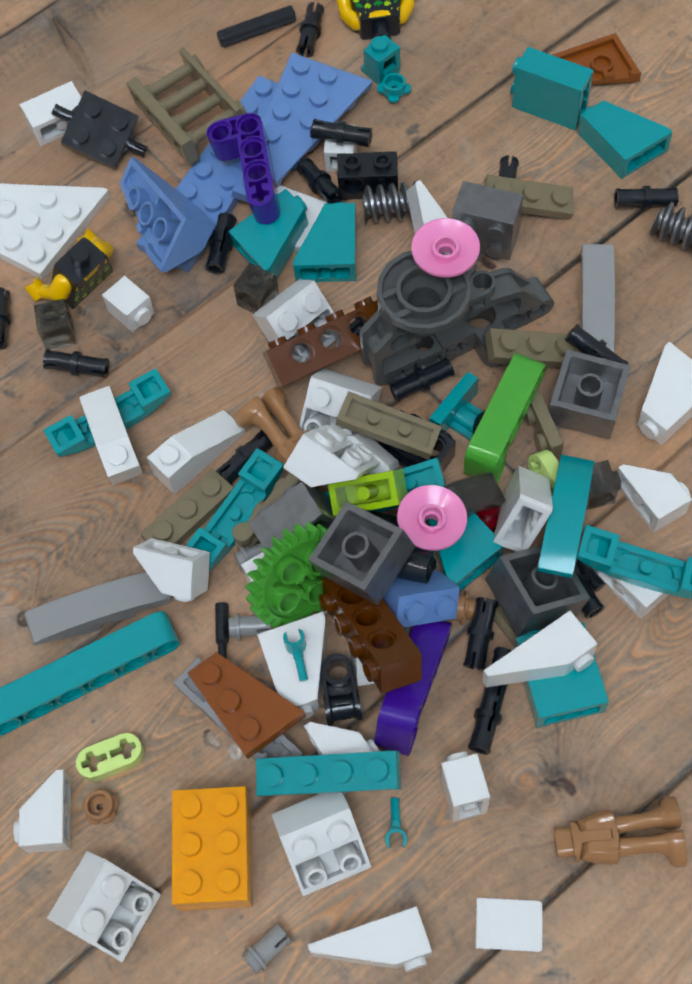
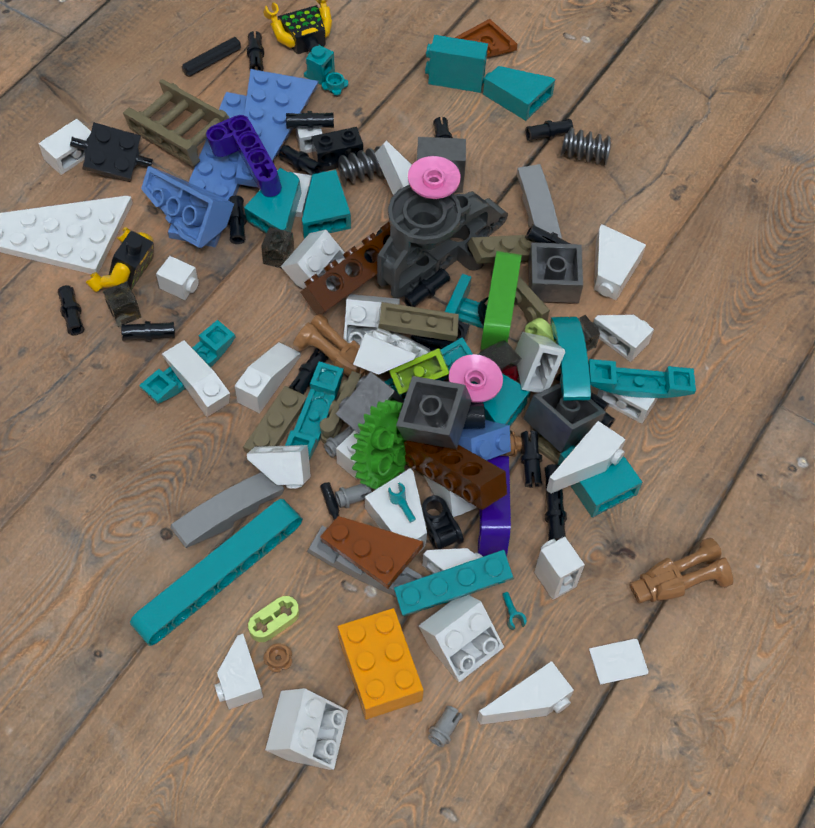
camera: 25 degrees left, 5 degrees down
(538, 197) = (476, 142): dark tan plate -> none

